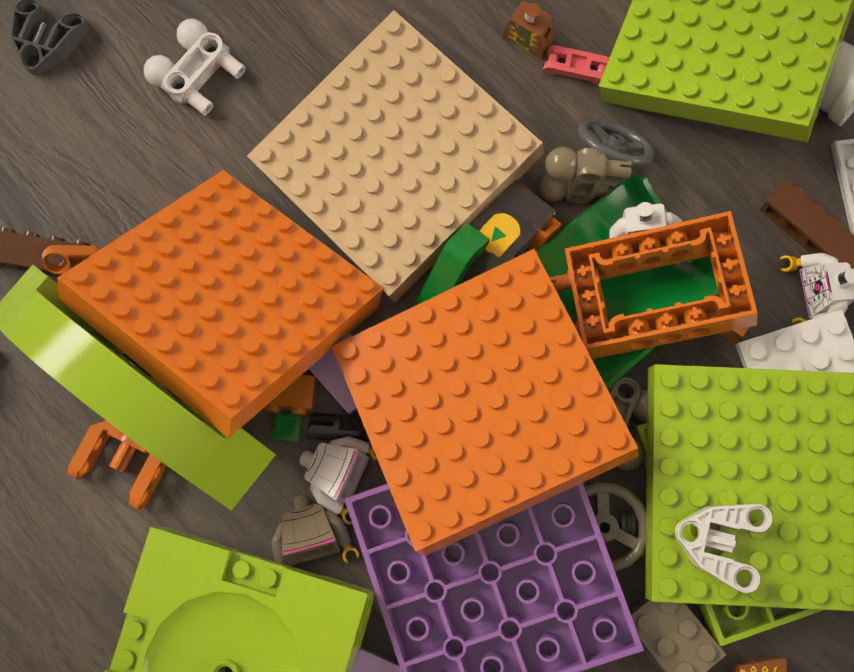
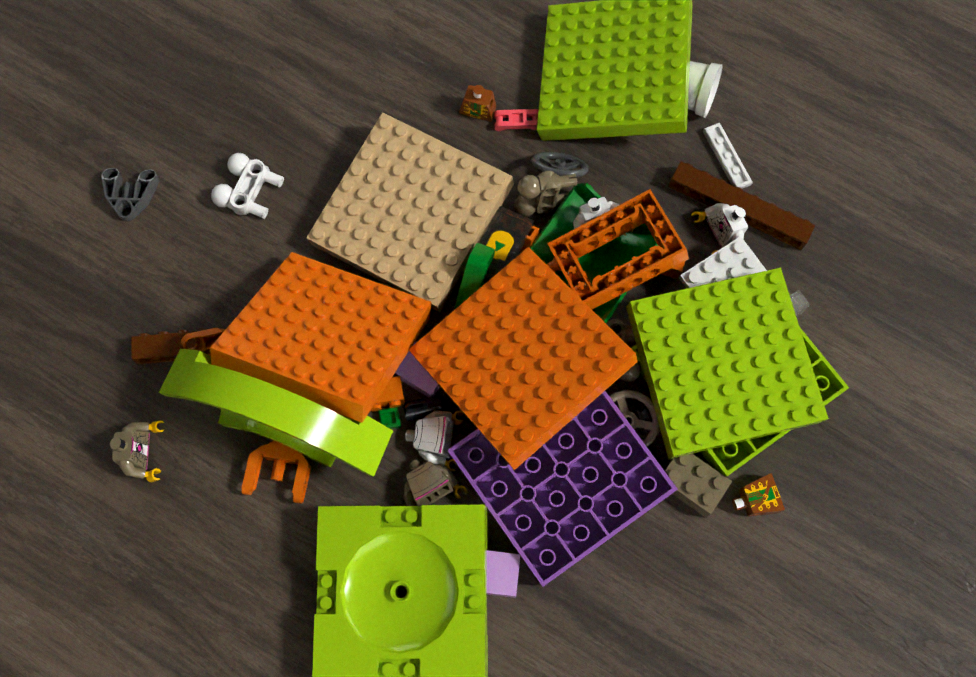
camera: 25 degrees left, 5 degrees down
(719, 567) = (707, 418): white connector -> none

